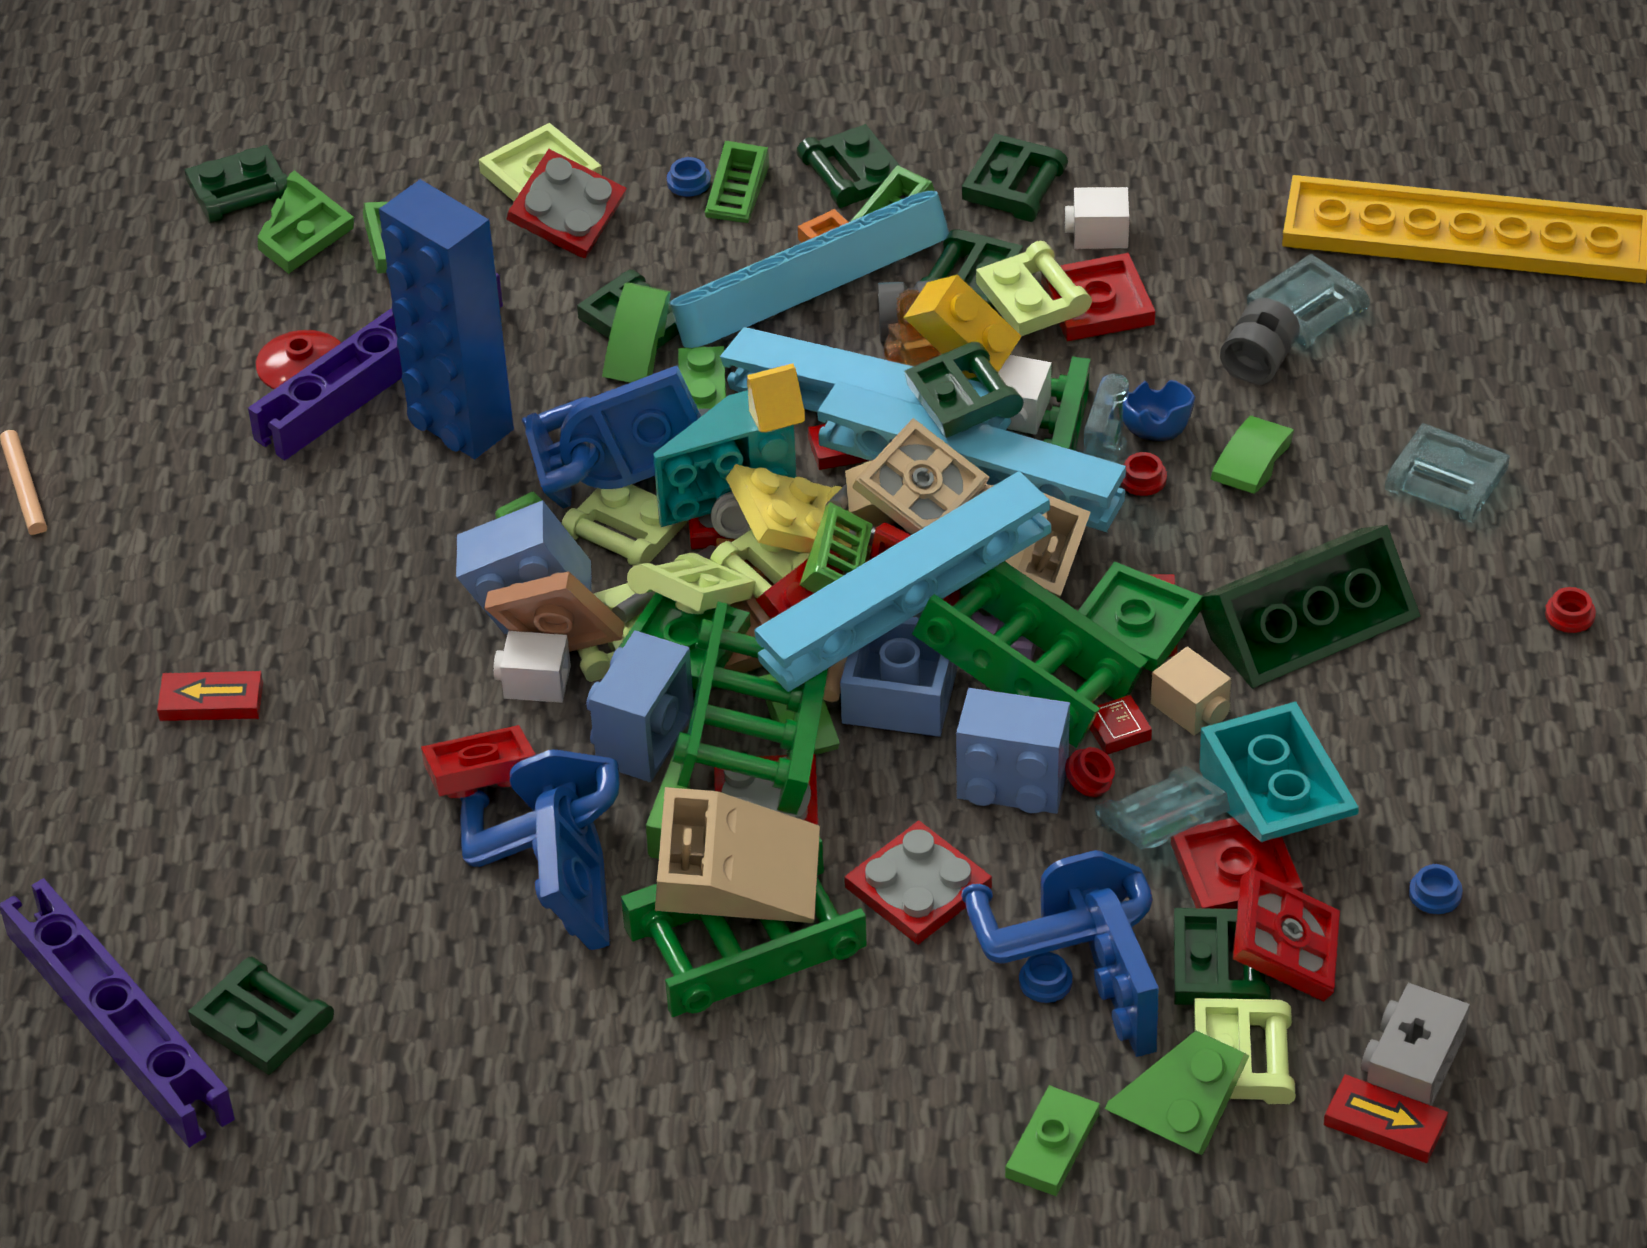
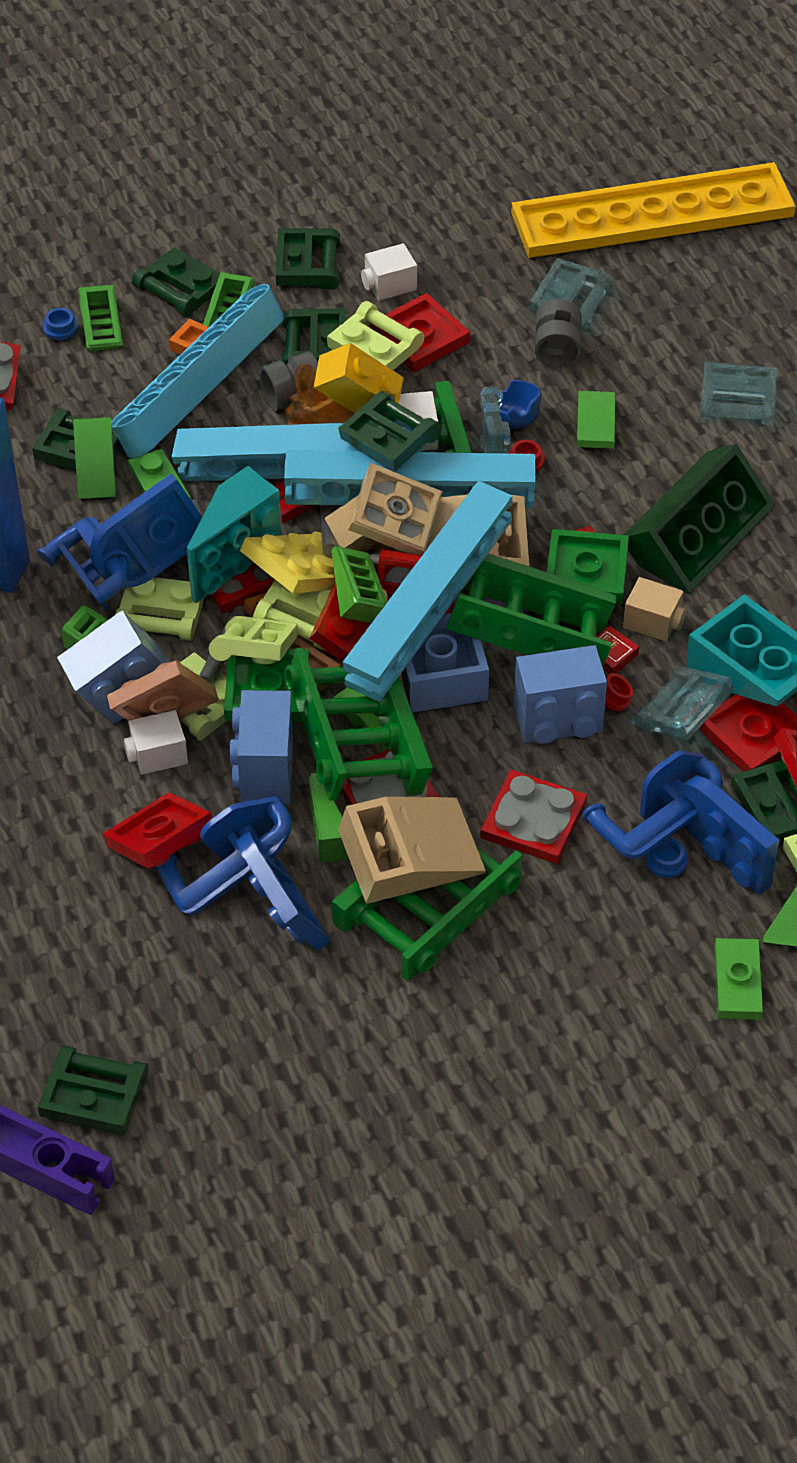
camera: 25 degrees left, 5 degrees up
(728, 517) = (251, 579): light grey plate -> none
(775, 398) = (262, 477): yellow slope -> none

